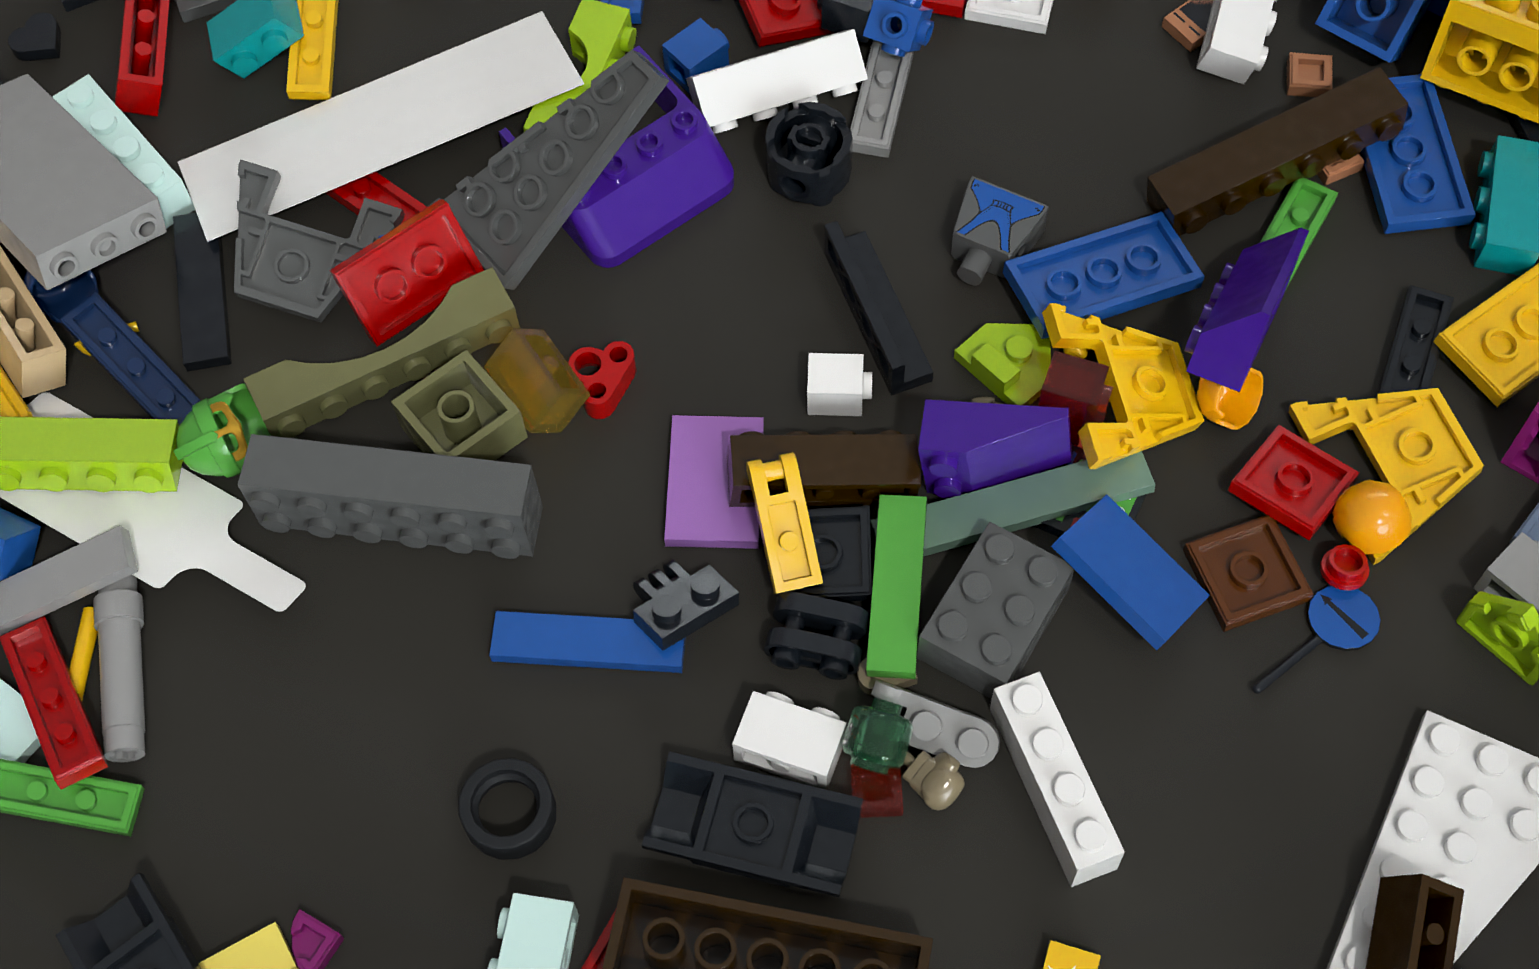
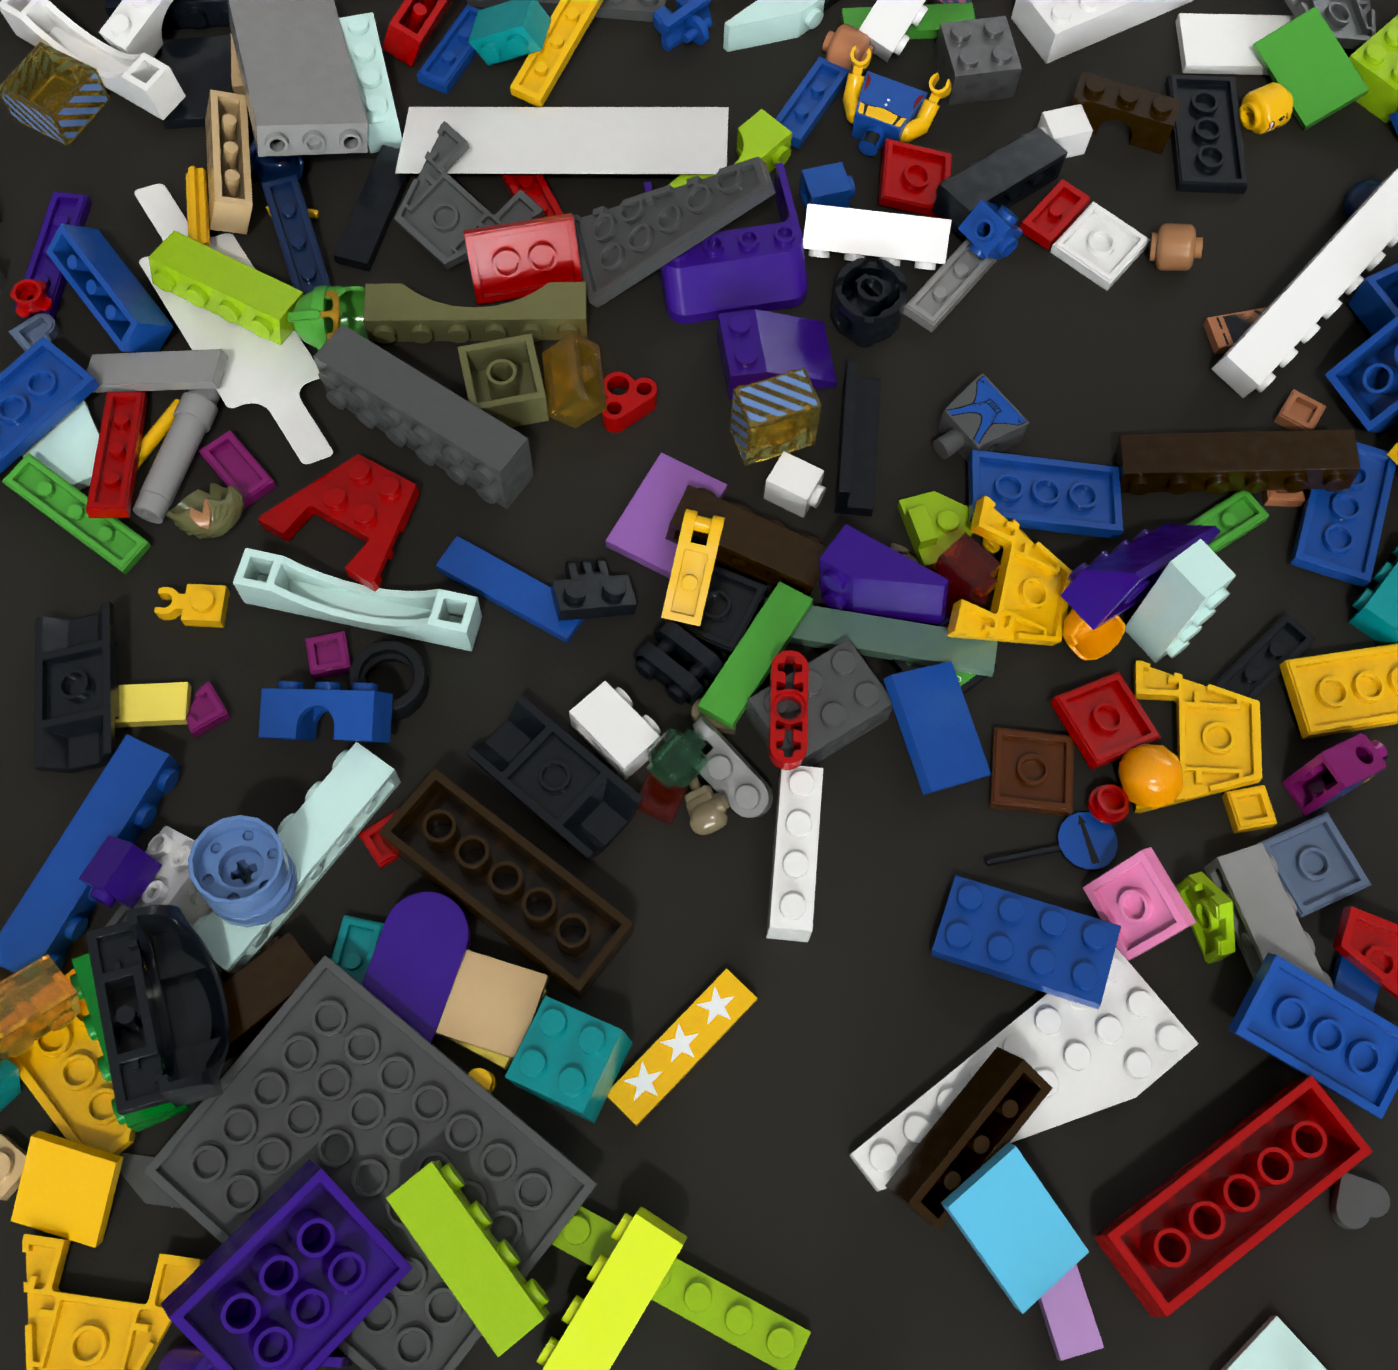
camera: 20 degrees right, 5 degrees up
(196, 81) = (451, 54): none -> blue tile
(197, 718) = (208, 514): none -> olive hair
(199, 654) = (237, 467): none -> magenta tile
(240, 829) = (199, 606): none -> yellow plate
(349, 755) = (426, 615): none -> light aqua arch
(365, 623) = (359, 500): none -> red wing
(420, 813) = (328, 655): none -> magenta tile
(421, 894) = (357, 713): none -> blue arch
(734, 256) = (769, 344): none -> dark purple slope
(778, 320) = (775, 416): none -> clear yellow container
(976, 663) = (799, 739): none -> red beam
(1313, 322) = (1180, 602): none -> light aqua brick
(1344, 753) = (1026, 941): none -> blue plate
(1437, 656) = (1141, 901): none -> bright pink tile
(1485, 505) = (1249, 809): none -> yellow tile

